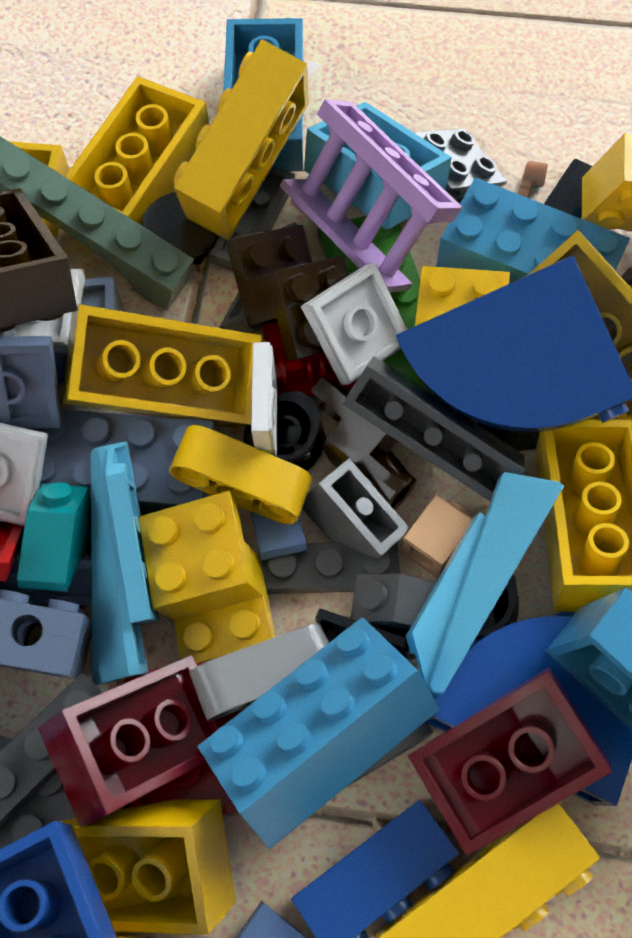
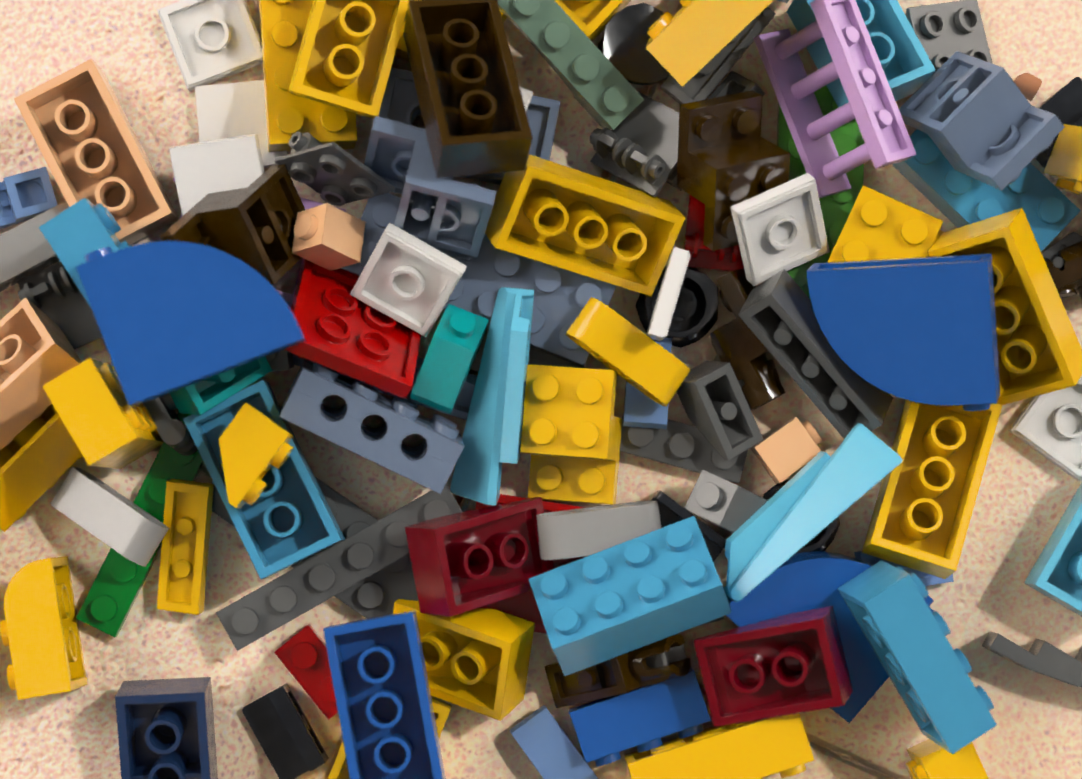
camera: 10 degrees right, 20 degrees up
(207, 300) = (640, 147): none -> dark grey hinge
(334, 828) = (621, 674): none -> dark brown plate
(514, 171) = (980, 120): none -> sand blue bracket

